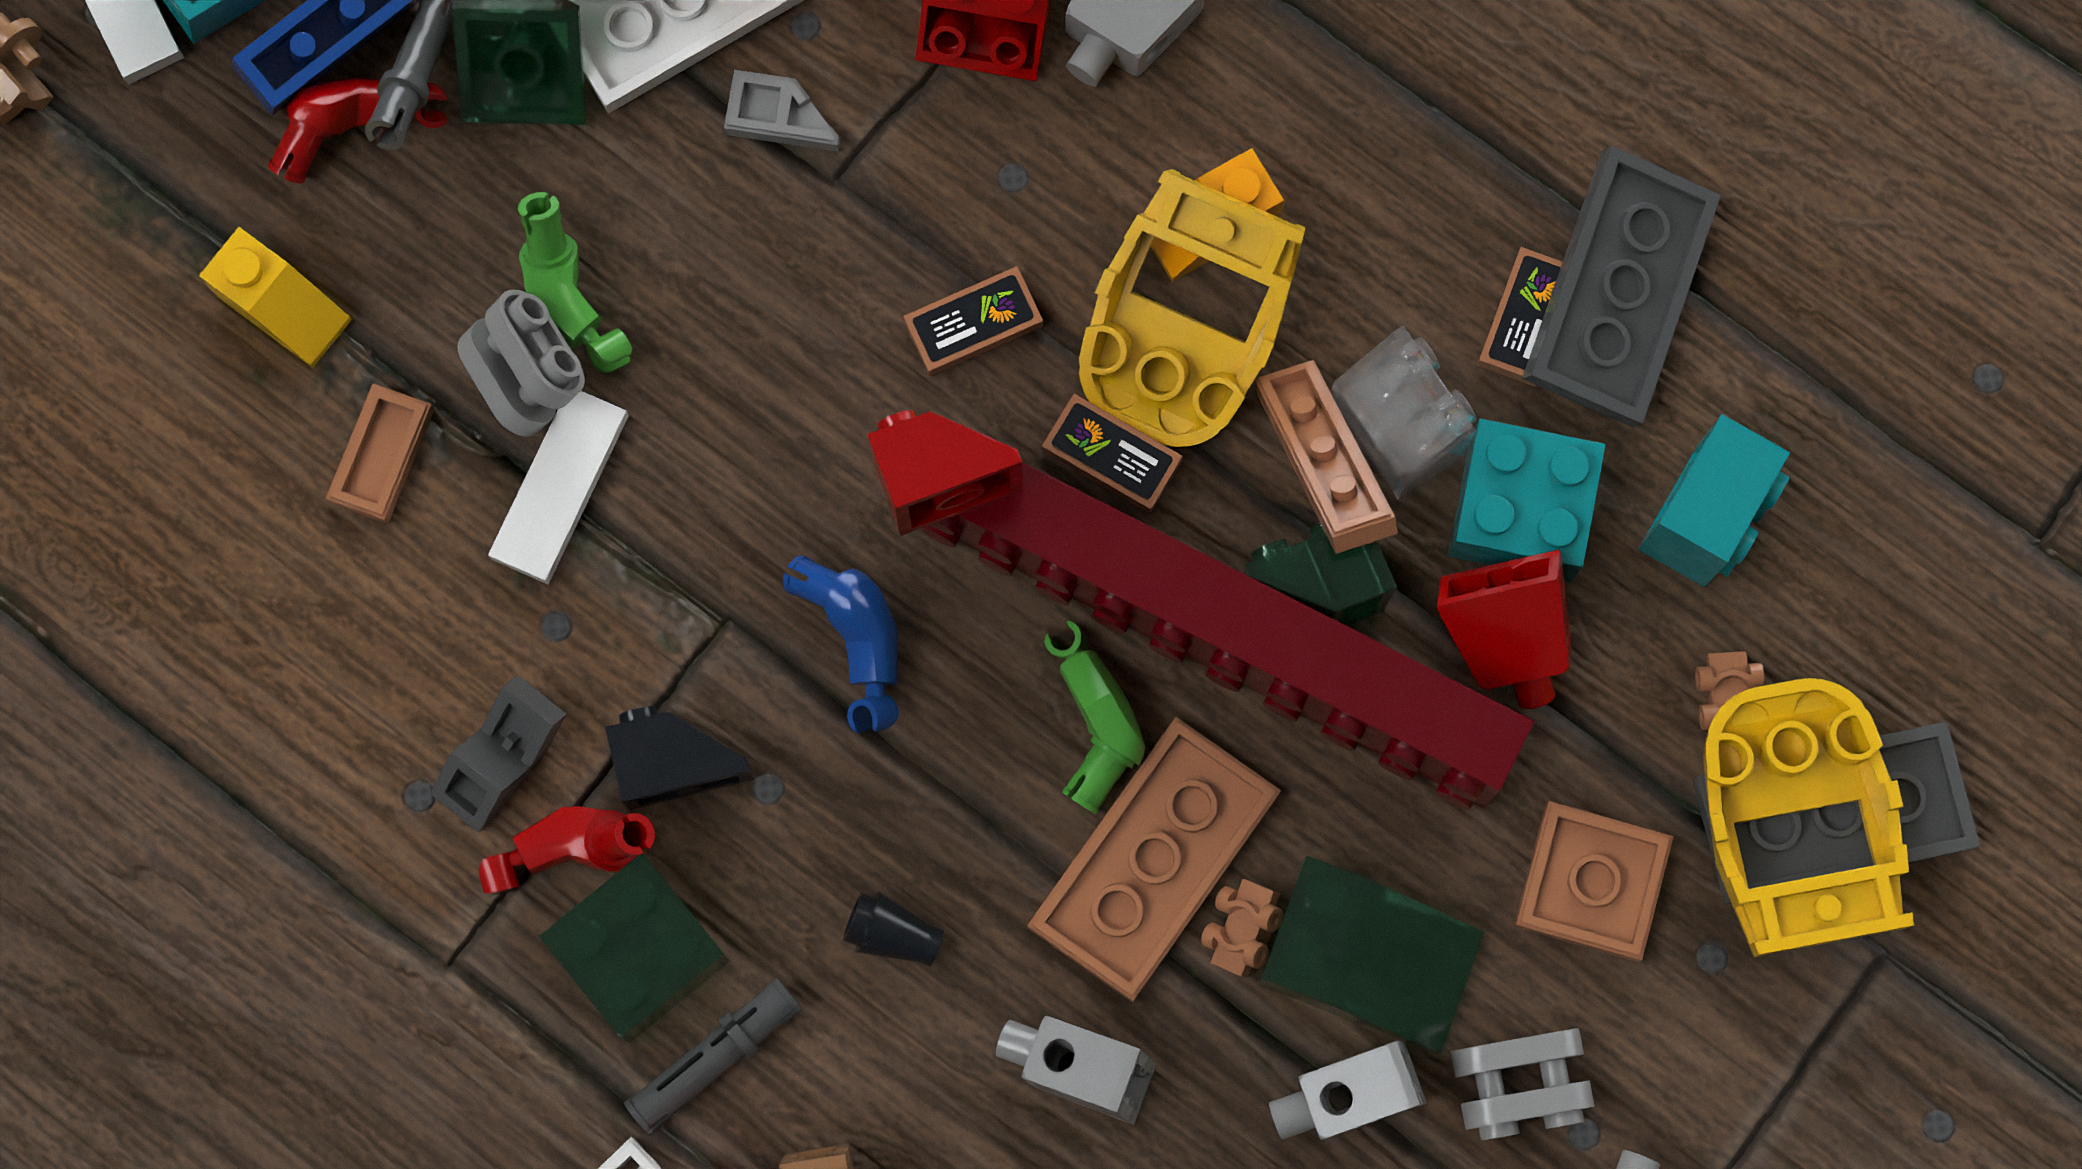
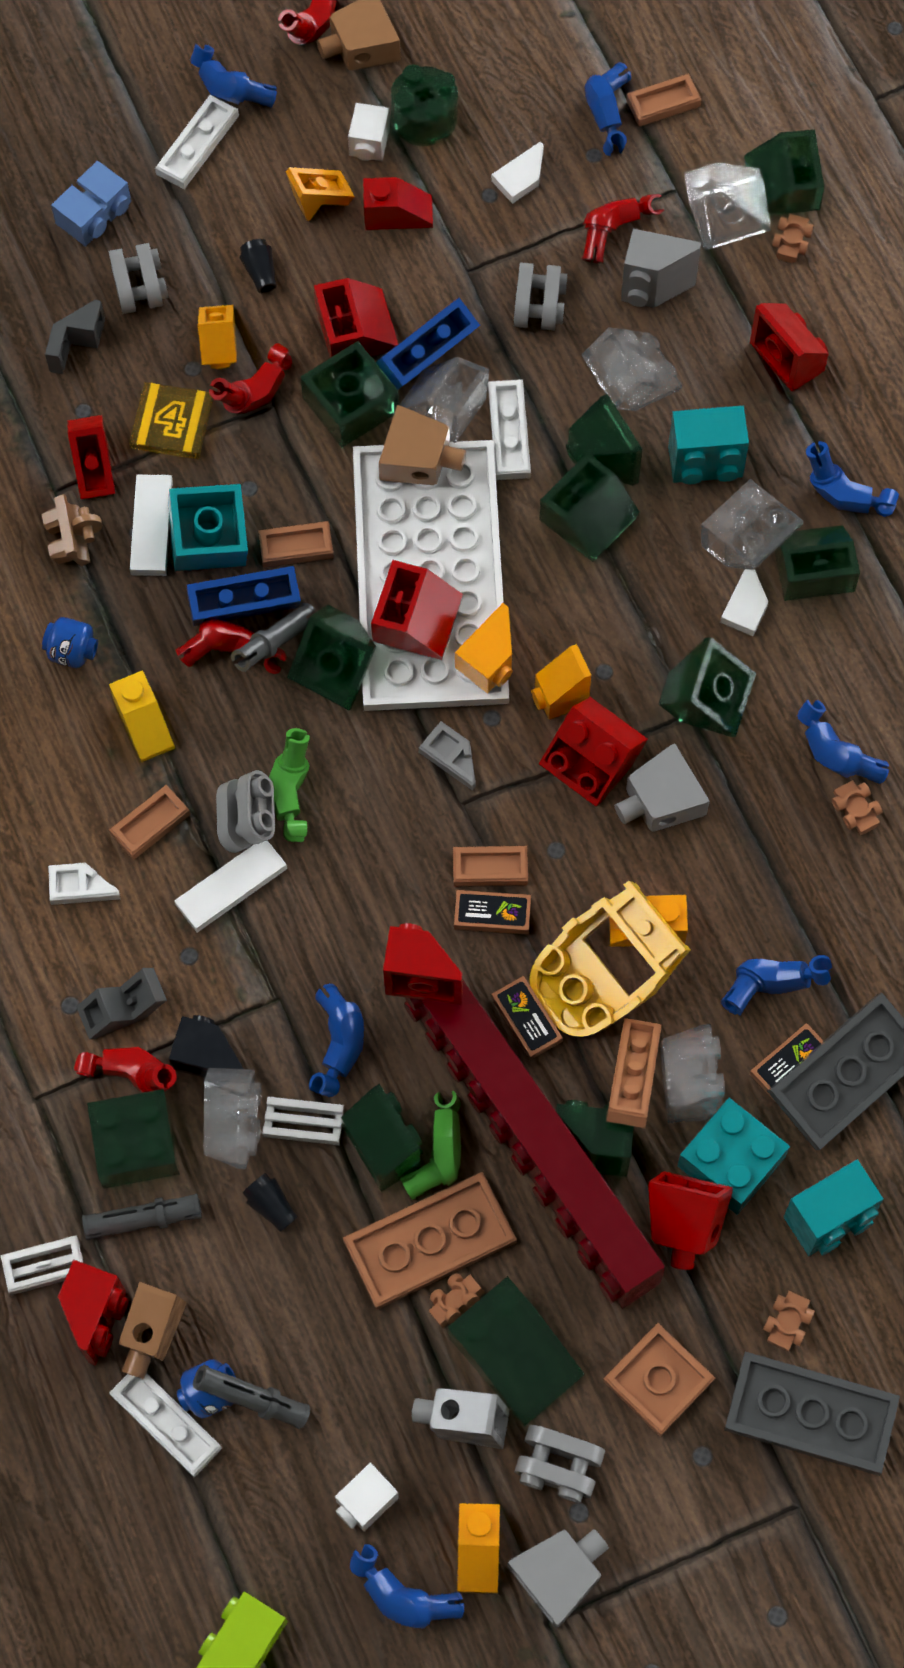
camera: 30 degrees right, 10 degrees down
(96, 240) = (69, 642): none -> blue head
(326, 606) = (78, 884): none -> white tile
(768, 838) = (231, 1115): none -> clear slope
(859, 760) = (303, 1106): none -> white tile
(930, 253) = (490, 866): none -> nougat tile
(1006, 747) = (382, 1138): none -> clear green slope
(1104, 1071) = (328, 1325): light grey torso -> none
(1441, 203) = (774, 978): none -> blue arm
(1797, 752) = (801, 1364): yellow slope -> none

